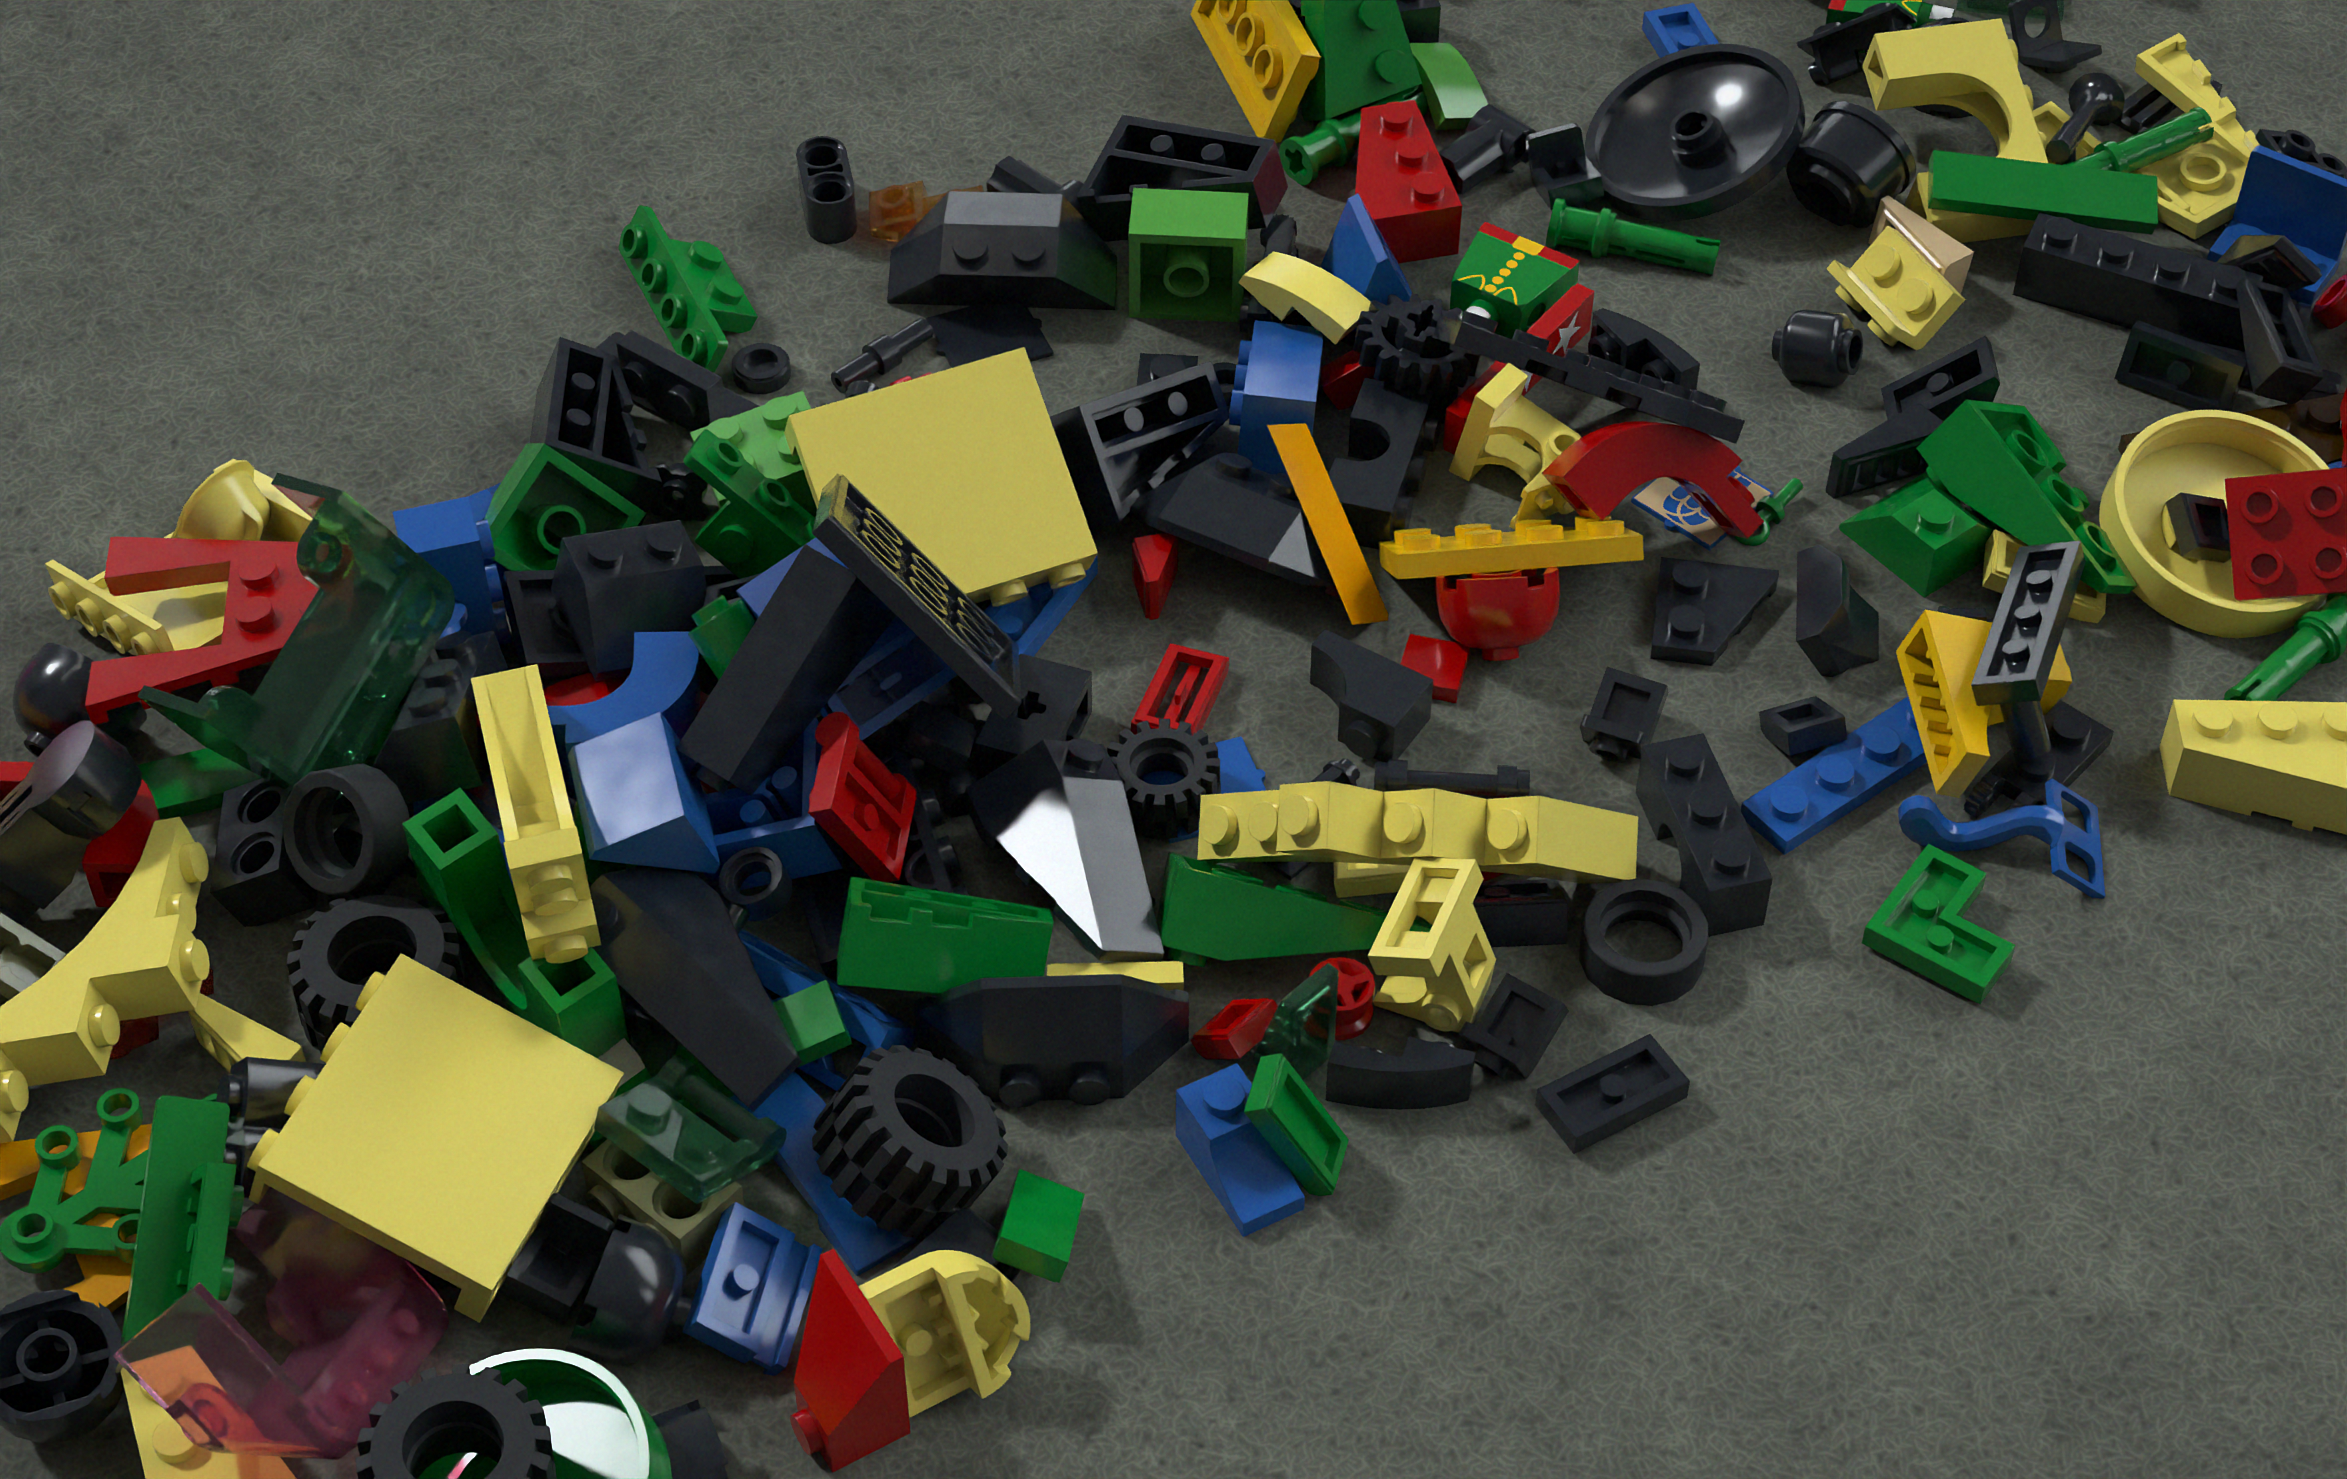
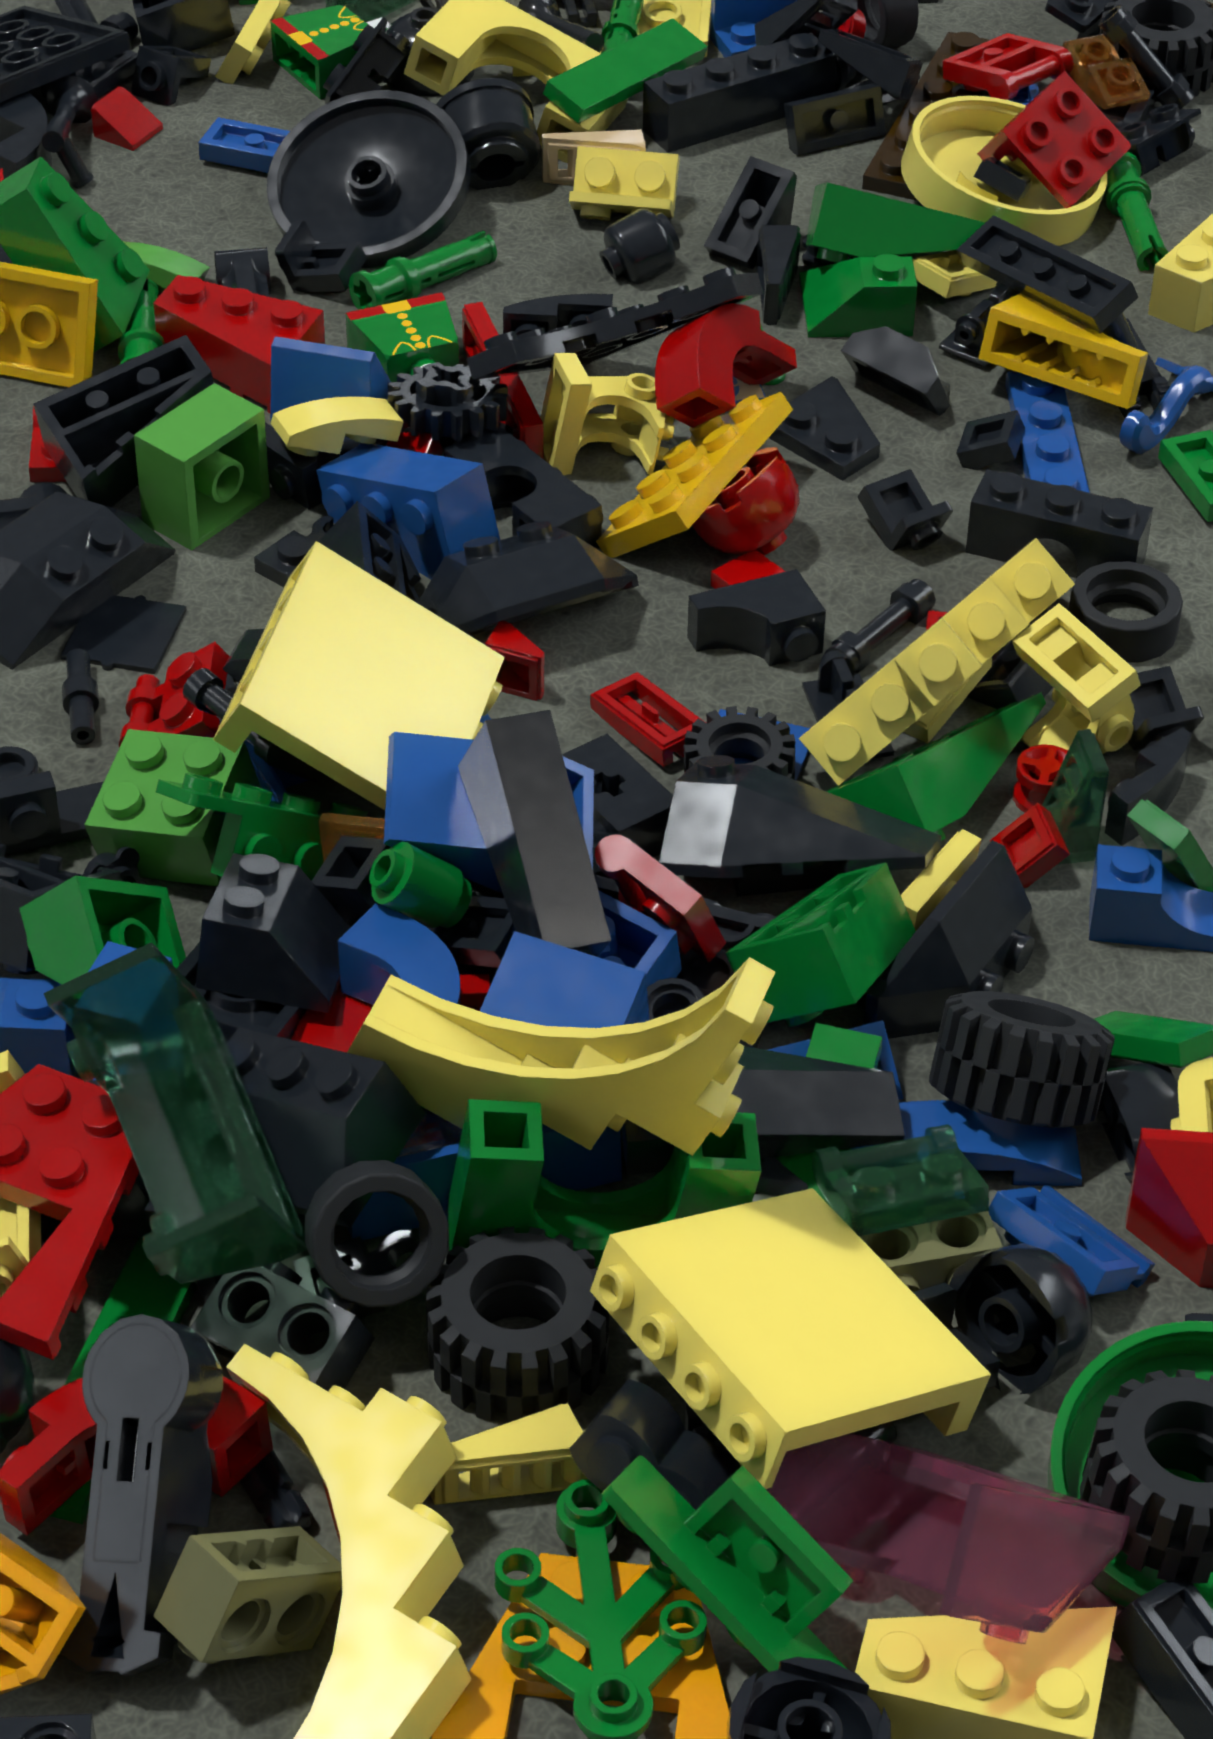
camera: 55 degrees left, 5 degrees down
(919, 594) = (589, 725): black tile -> none
(1329, 523) = (581, 534): light orange sticker -> none

